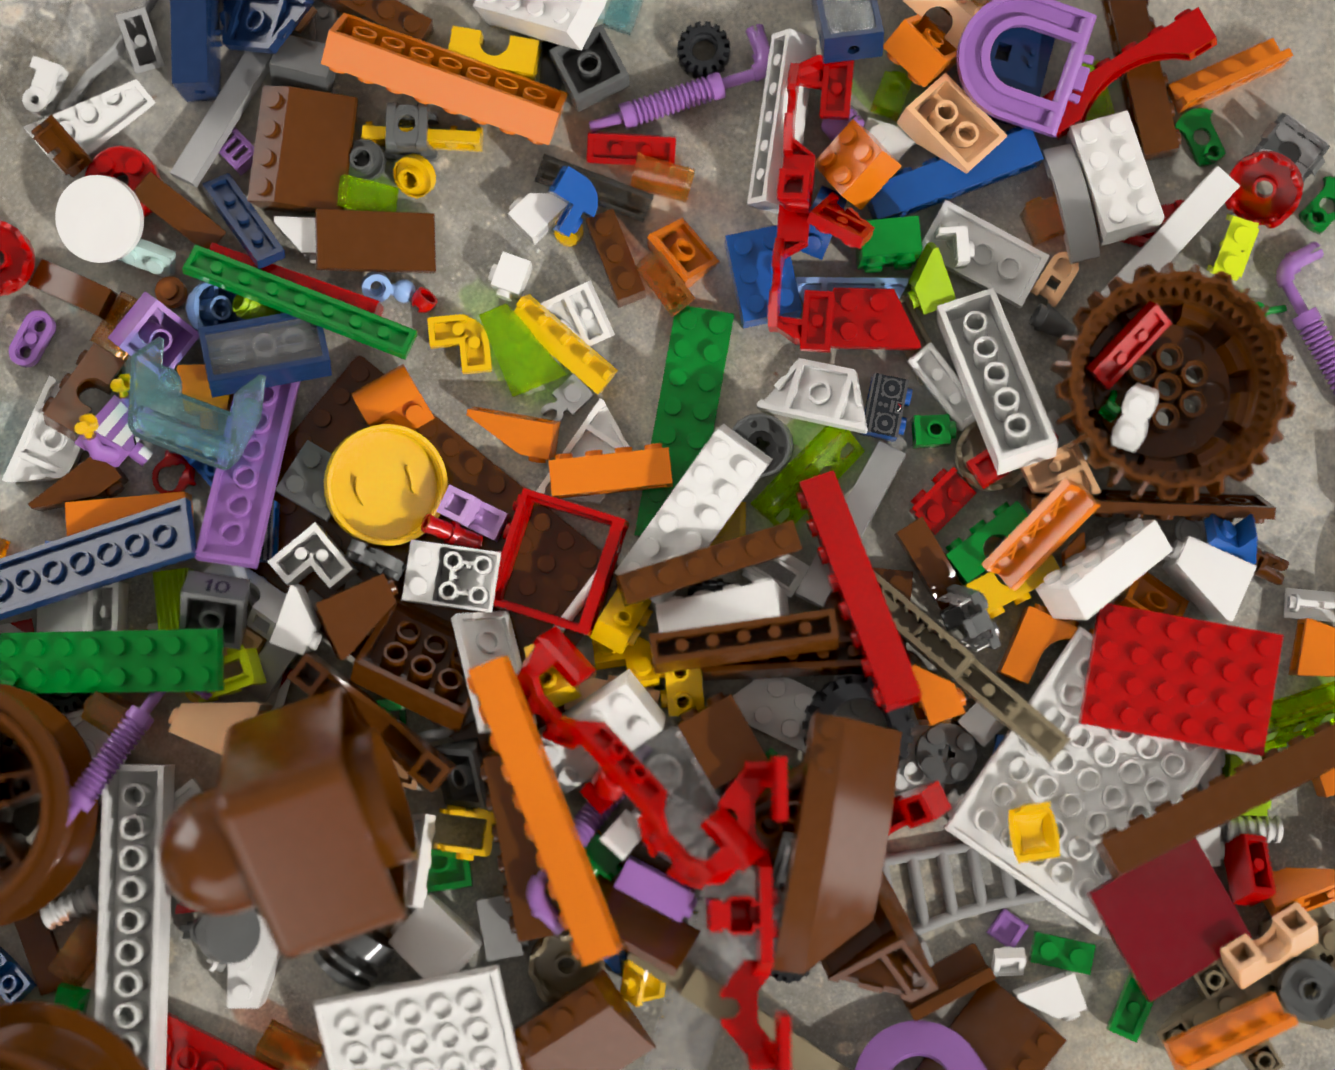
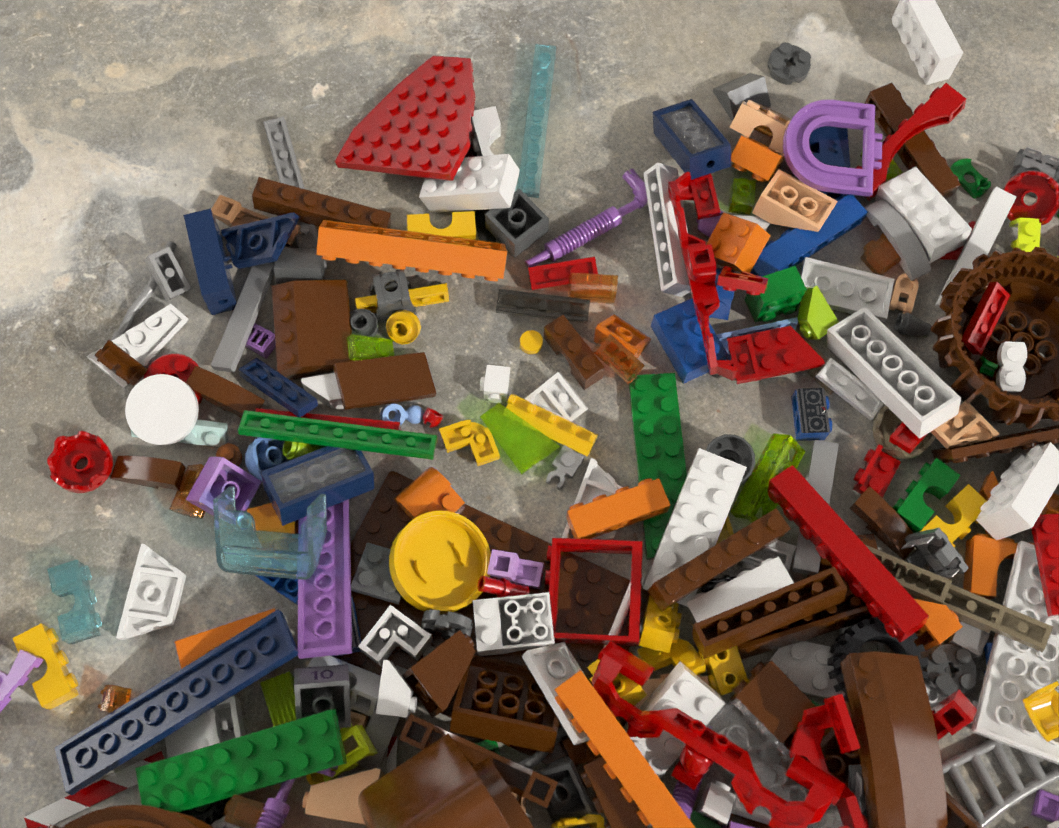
camera: 20 degrees left, 15 degrees down
(29, 337) = (119, 519): medium lavender plate -> none
(45, 87) = (98, 326): white leg -> none
(85, 482) = (192, 618): reddish brown slope -> none
(94, 370) = (178, 530): reddish brown arch -> none
(108, 433) = (201, 574): torso -> none
(174, 459) = (255, 587): red piece -> none
(522, 433) = (542, 499): orange slope -> none
(536, 214) = (505, 333): white slope -> none
(580, 198) = (534, 308): blue brick -> none
(703, 33) = (598, 184): black tyre -> none
(818, 395) = (760, 416): white wing -> none
(924, 438) = (846, 428): green brick -> none
(962, 248) = (829, 282): white bracket -> none
(1041, 533) = (968, 474): orange fence -> none
(1227, 74) = (974, 132): orange fence -> none

